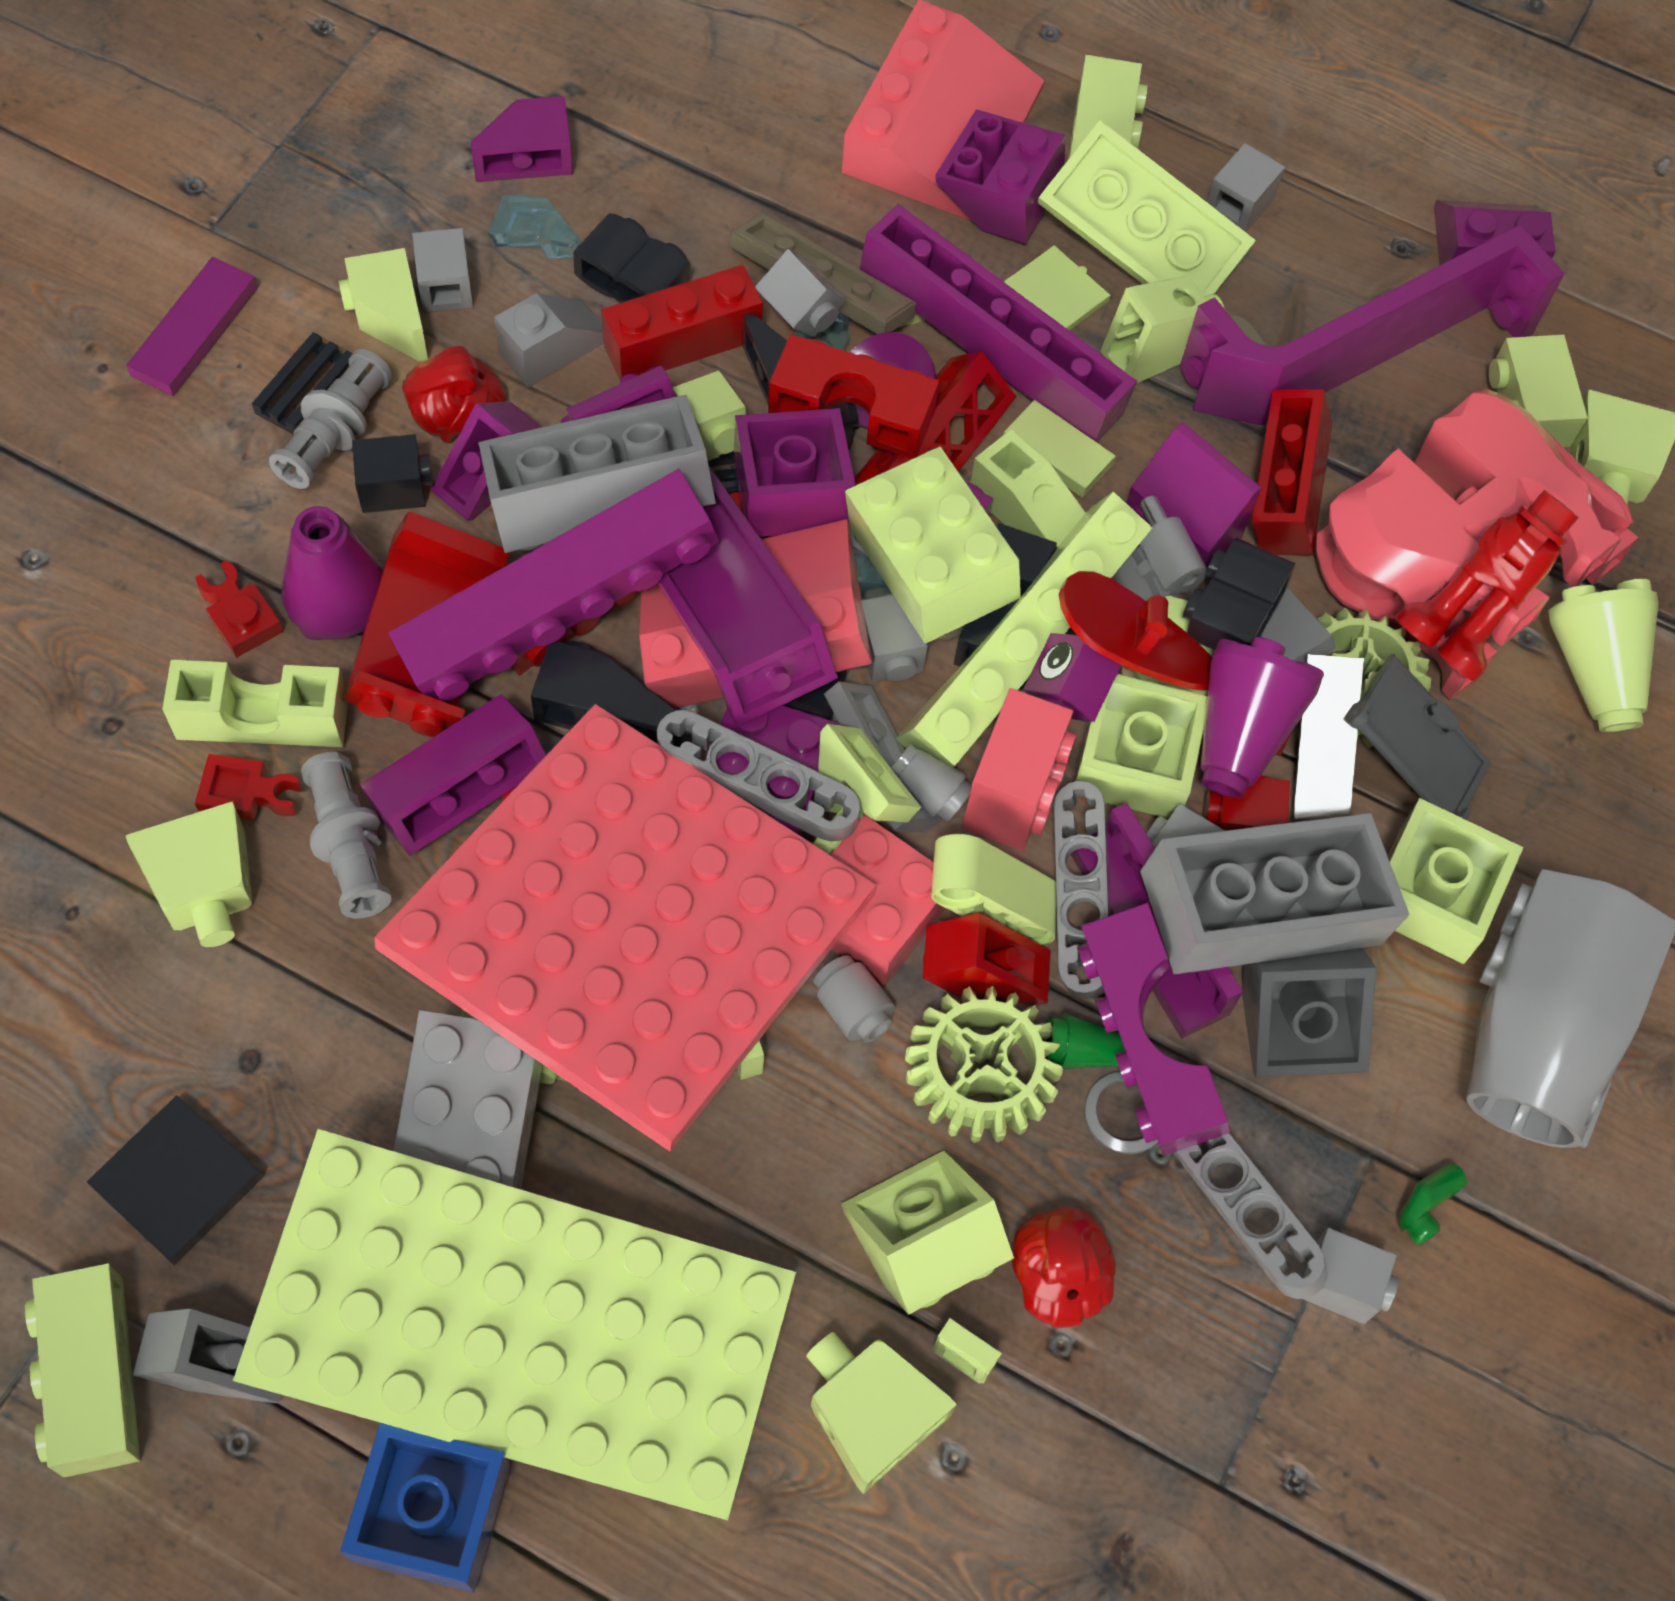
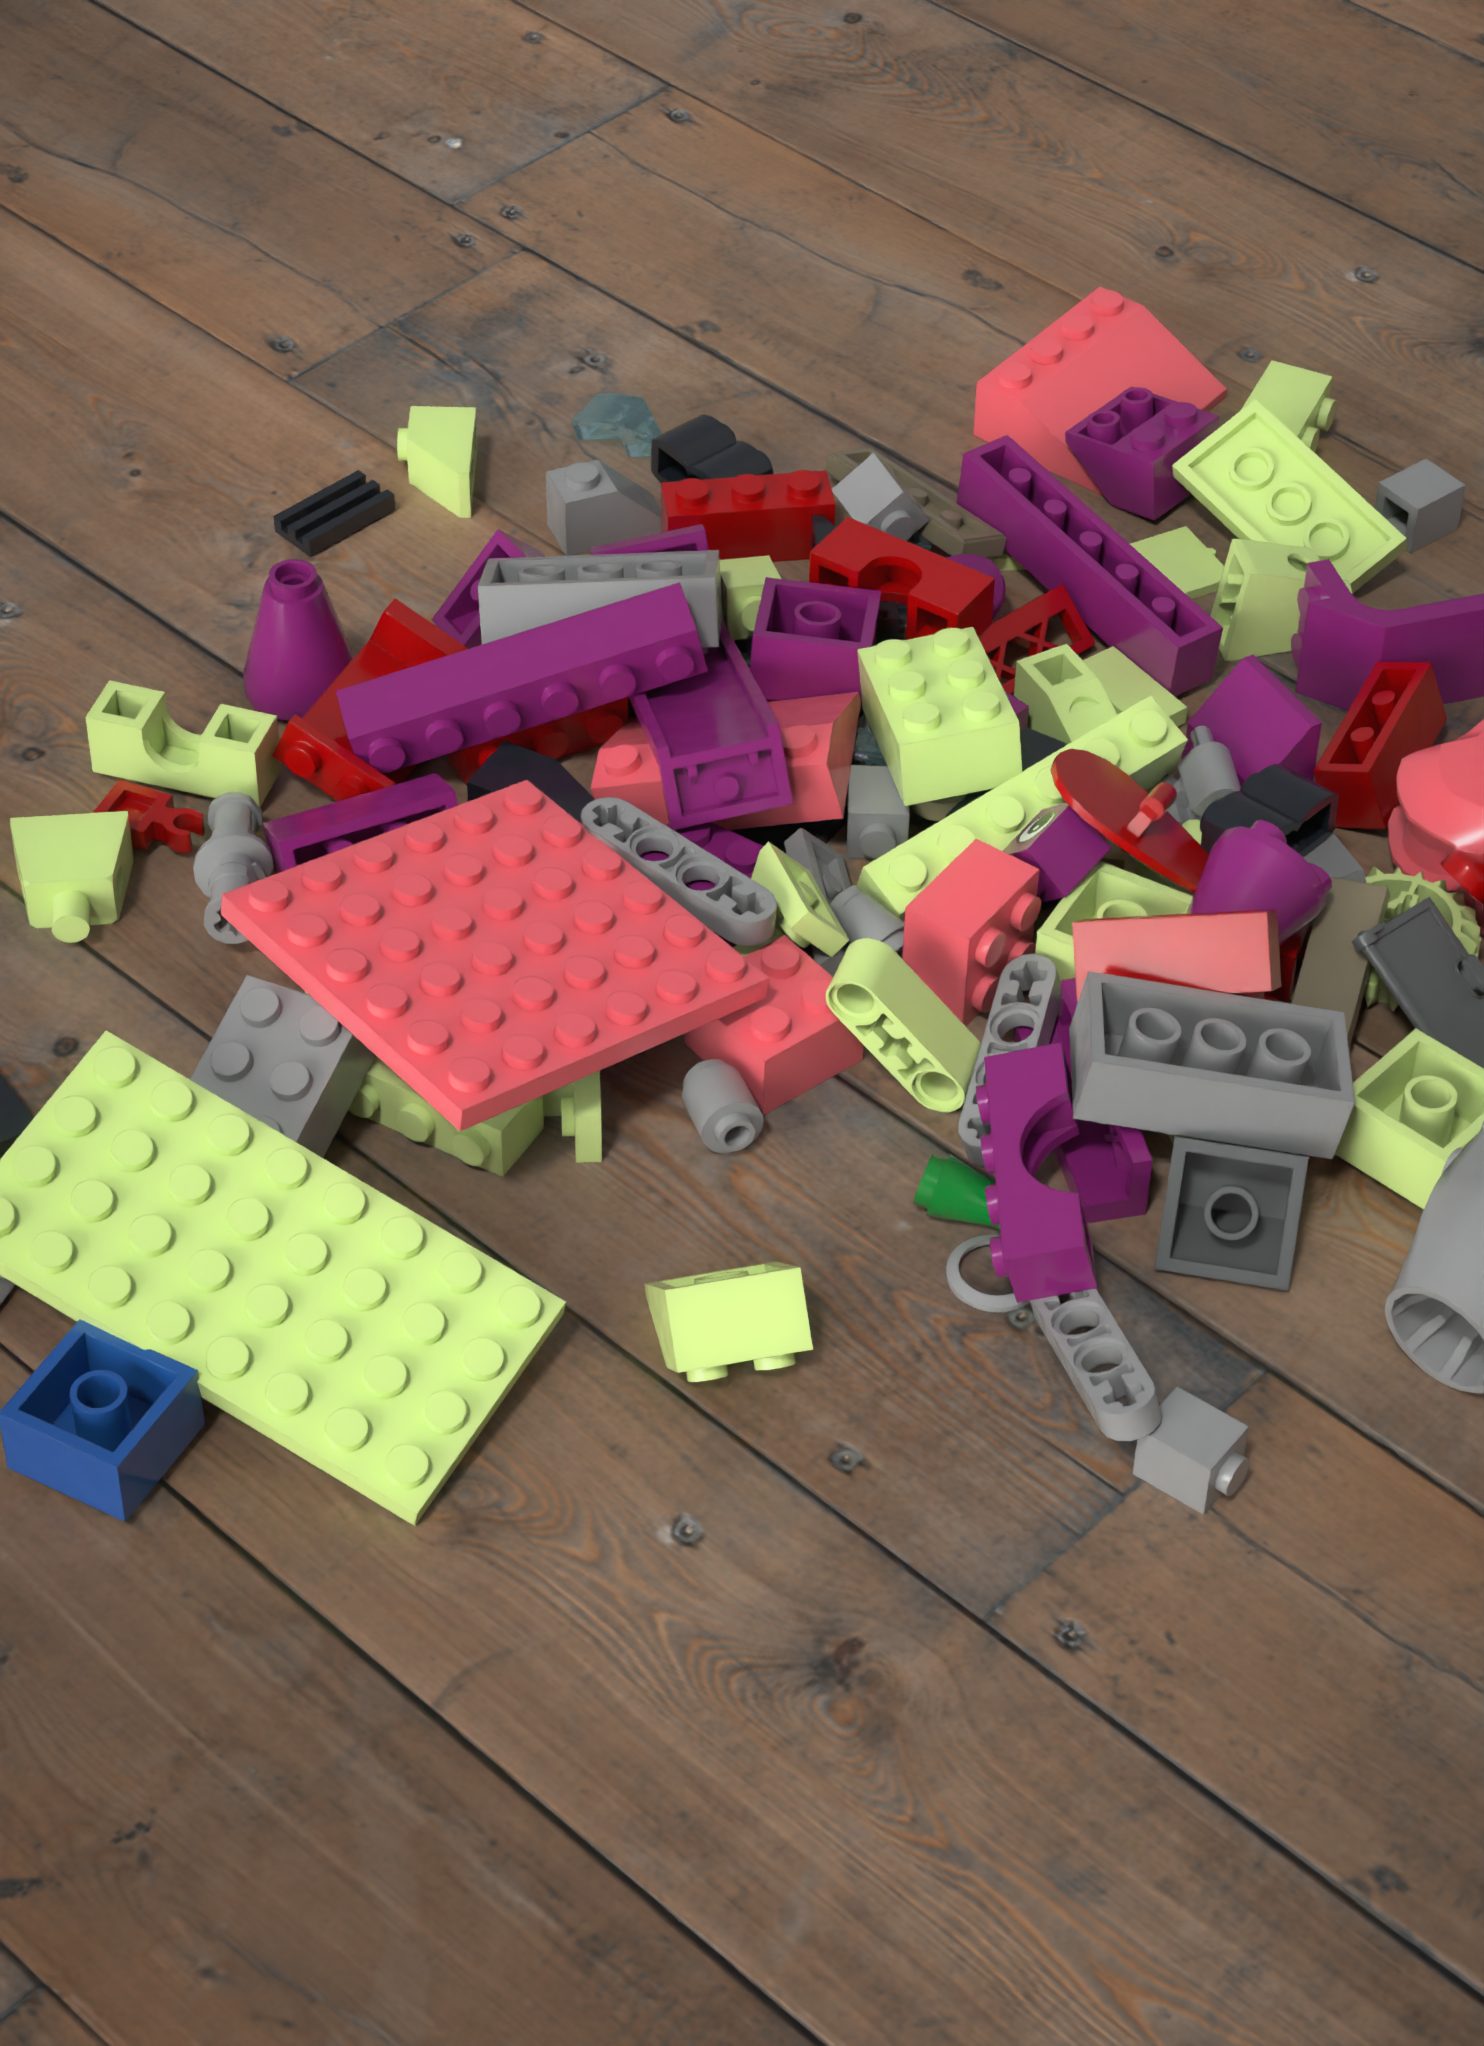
camera: 20 degrees right, 20 degrees down
(192, 326) = (238, 449): magenta tile -> none
(238, 613) = (194, 682): red plate -> none
(331, 419) = (355, 533): light grey piece -> none
(390, 473) = (392, 575): black brick -> none
(442, 270) = (511, 440): light grey brick -> none
(446, 390) = (470, 522): red hair -> none
(524, 142) = (636, 352): magenta slope -> none
(874, 1406) = (615, 1452): yellowish green torso -> none
(952, 1029) = (839, 1202): yellowish green gear -> none
(966, 1351) = (732, 1424): yellowish green tile -> none
(983, 955) = (879, 1099): red slope -> none
(1064, 1253) = (874, 1350): red hair -> none
(1222, 787) = (1194, 950): none -> brick
(1425, 1197) = (1312, 1402): green arm -> none

